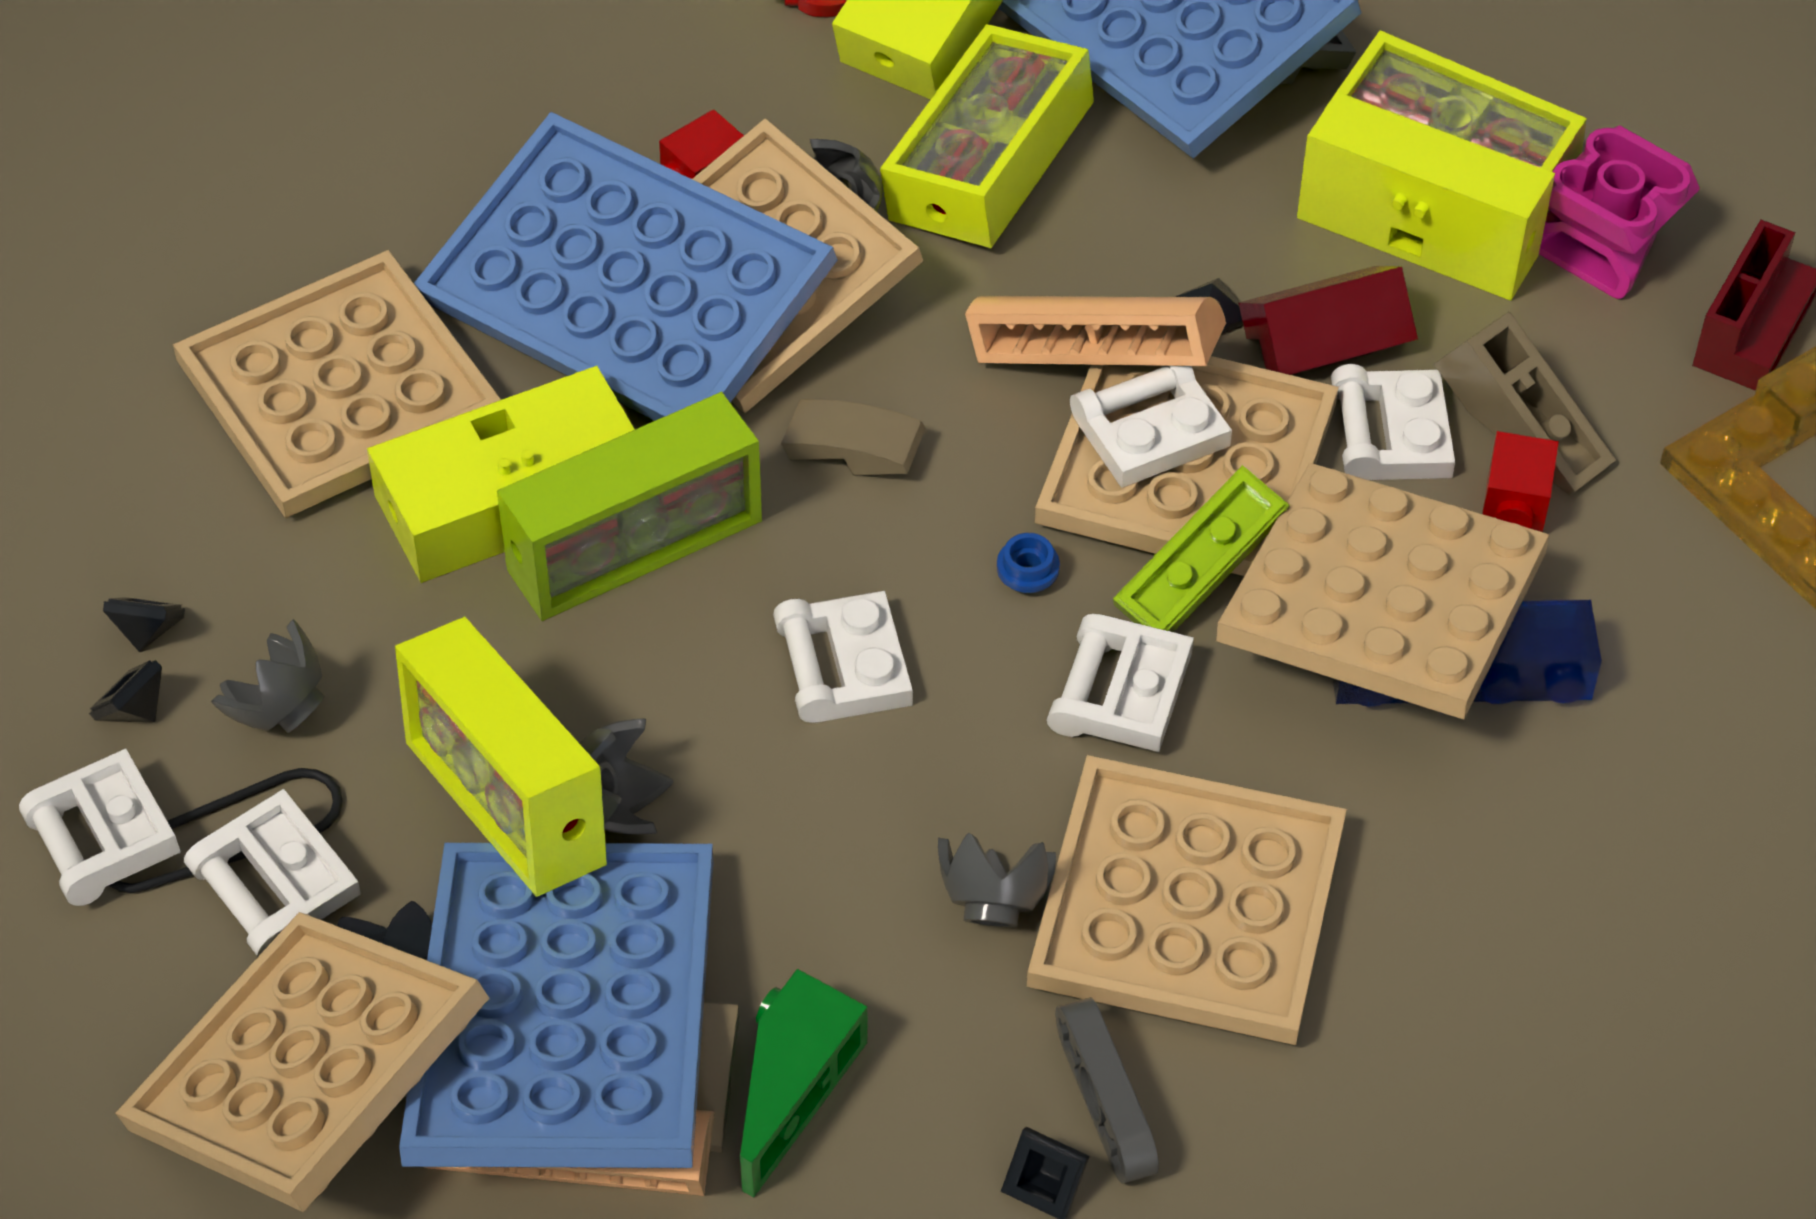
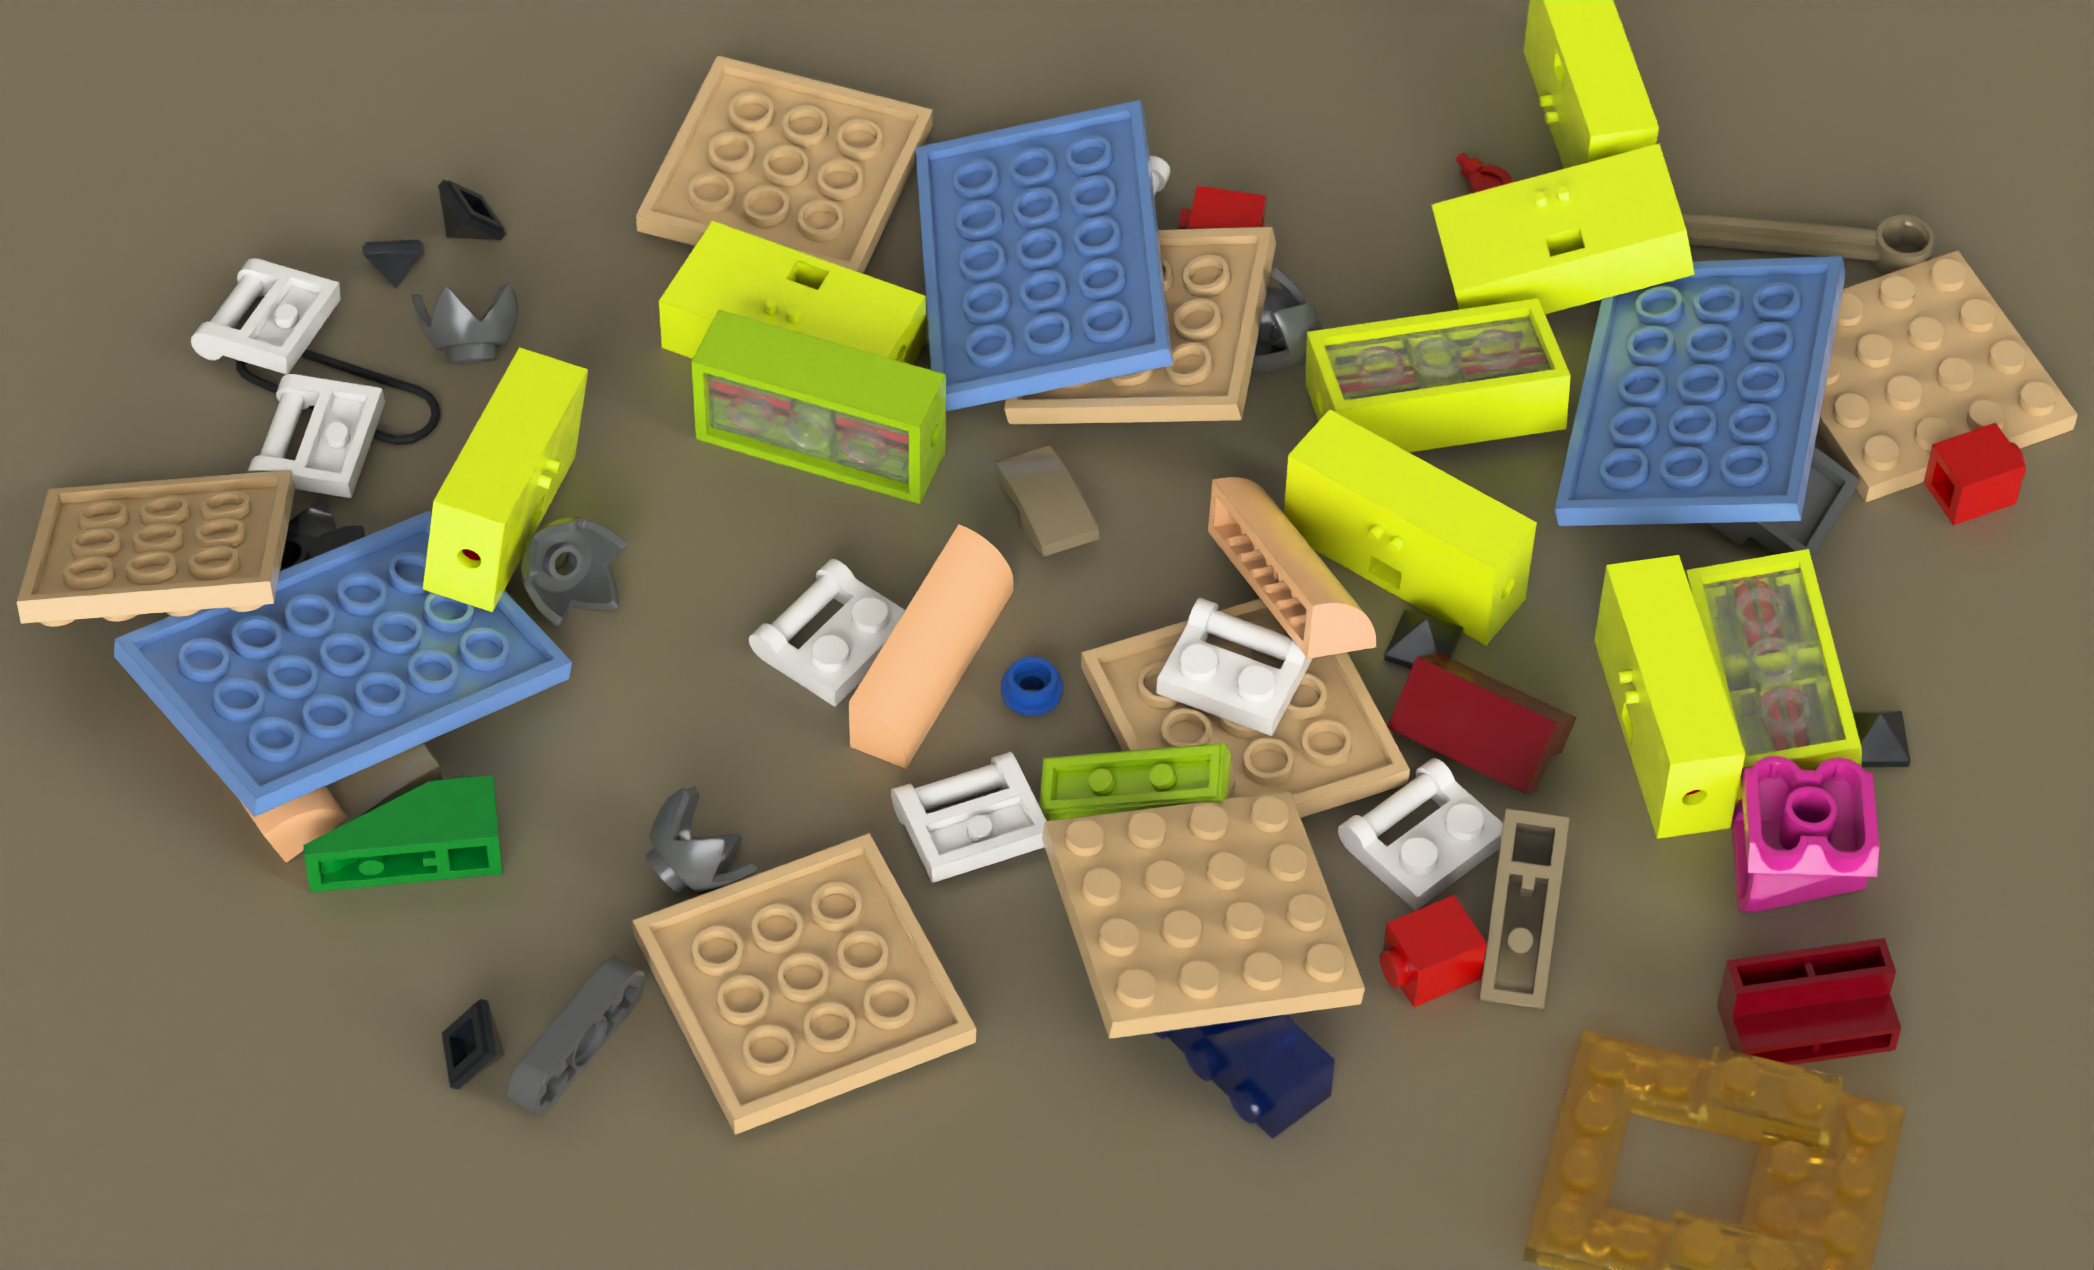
camera: 50 degrees right, 0 degrees up
(931, 603) = (930, 649): none -> light nougat brick
(1126, 229) = (1409, 526): none -> neon yellow brick

